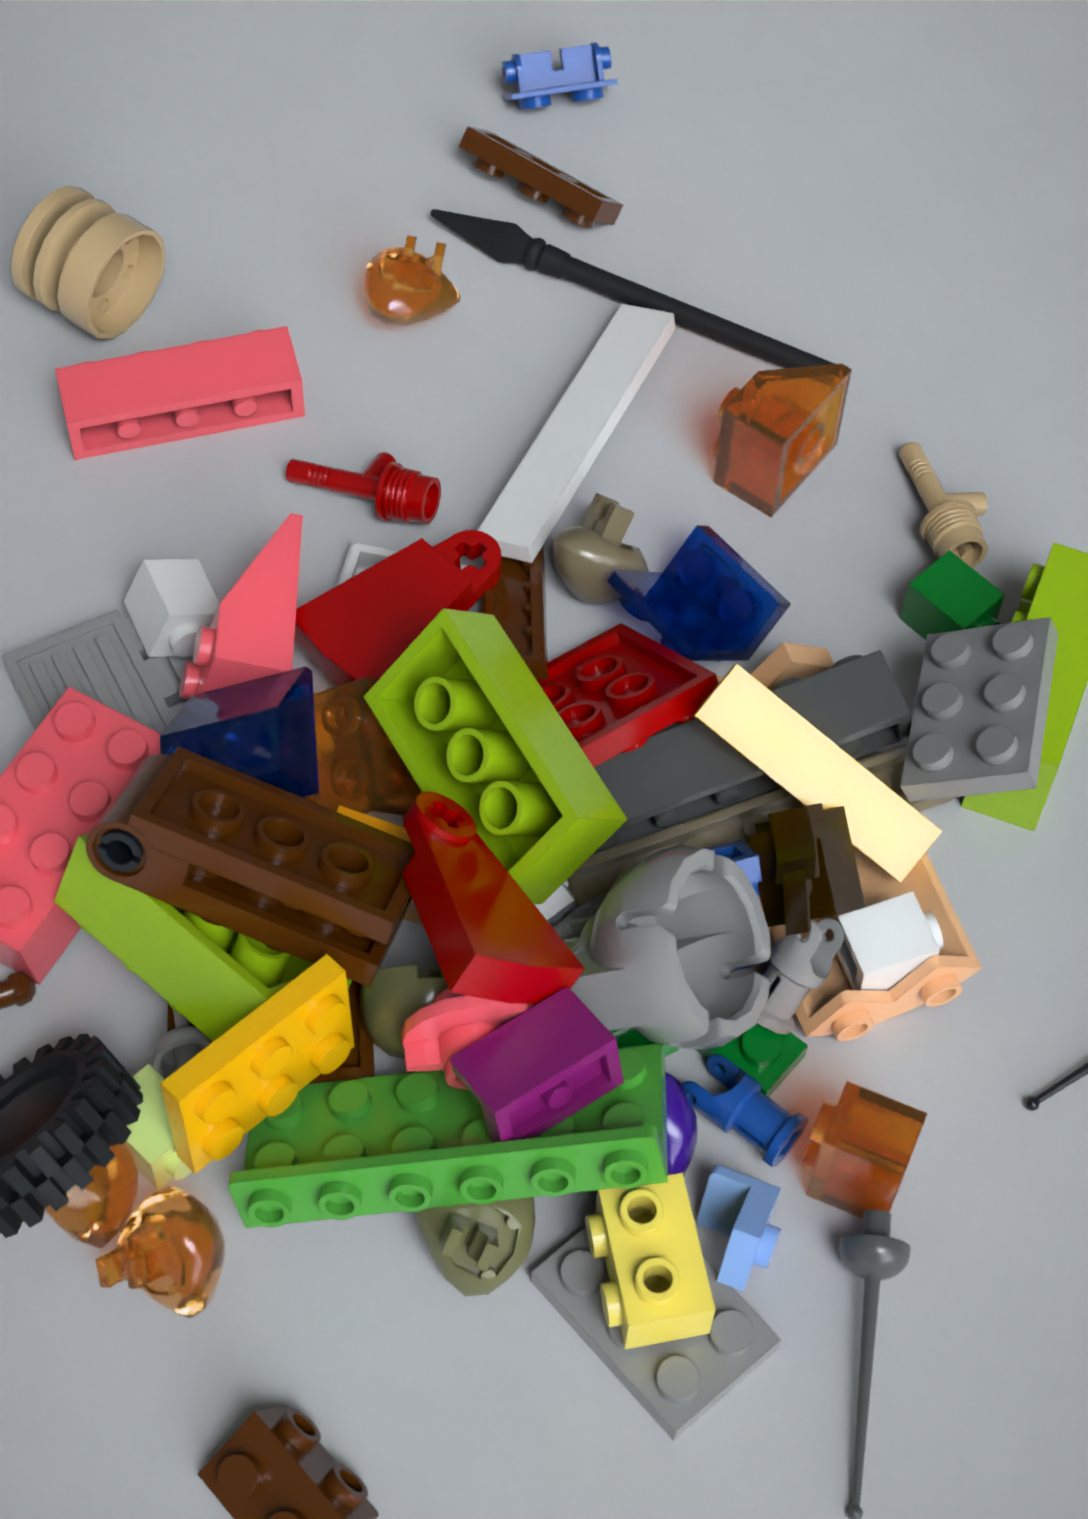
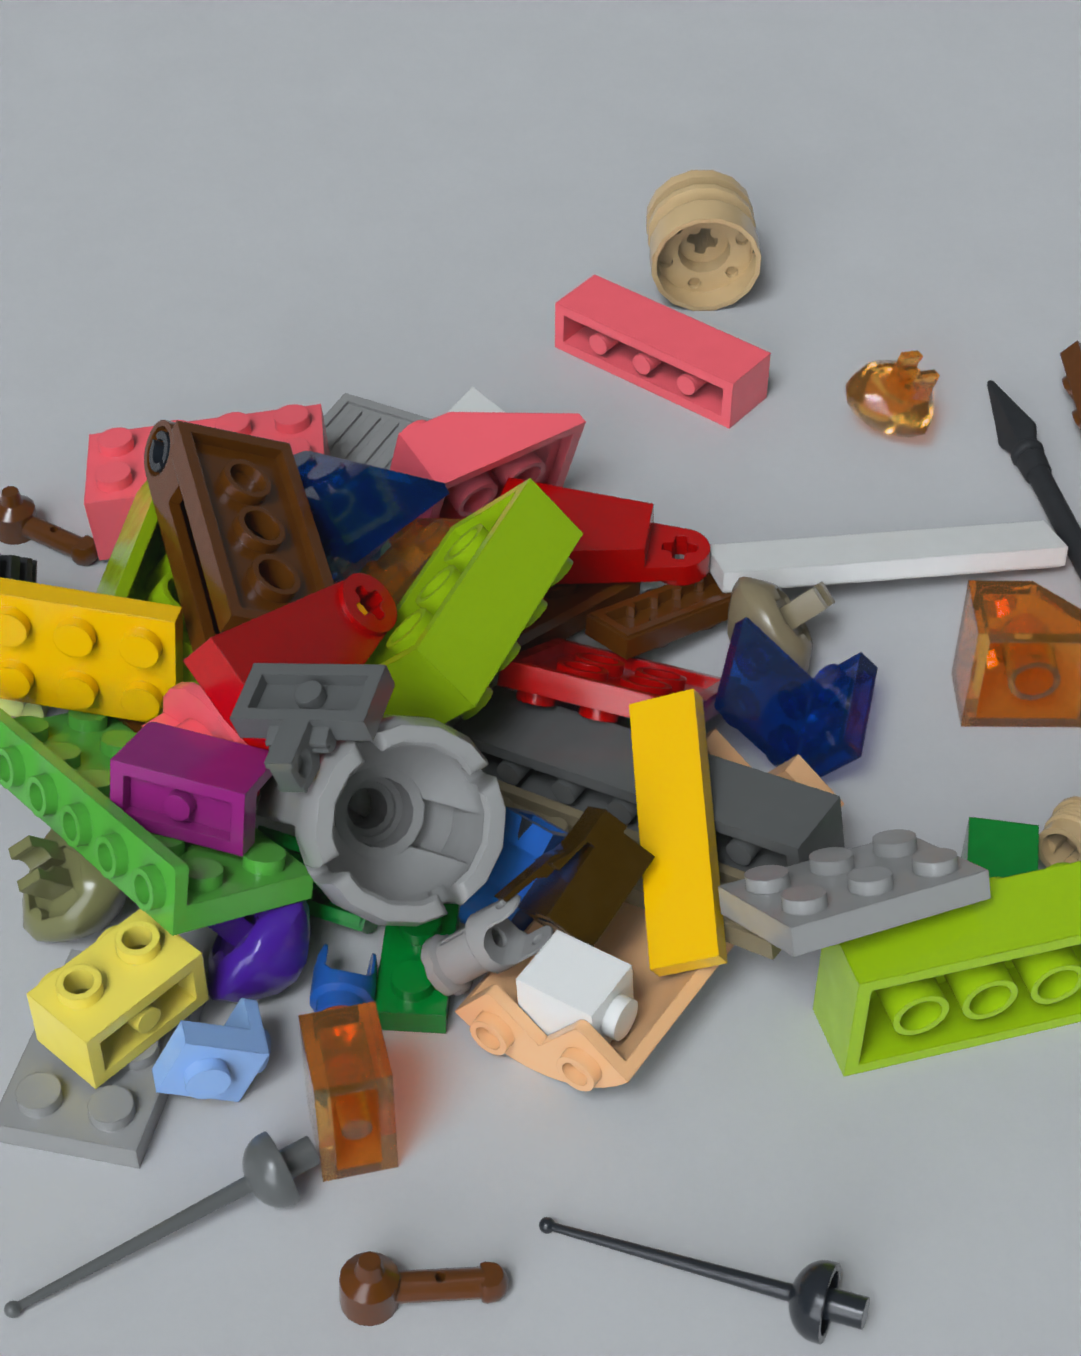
camera: 55 degrees right, 15 degrees down
(397, 491) = (703, 491): red piece -> none
(608, 935) = (308, 709): none -> dark grey hinge
(1018, 1245) = (374, 1287): none -> reddish brown piece

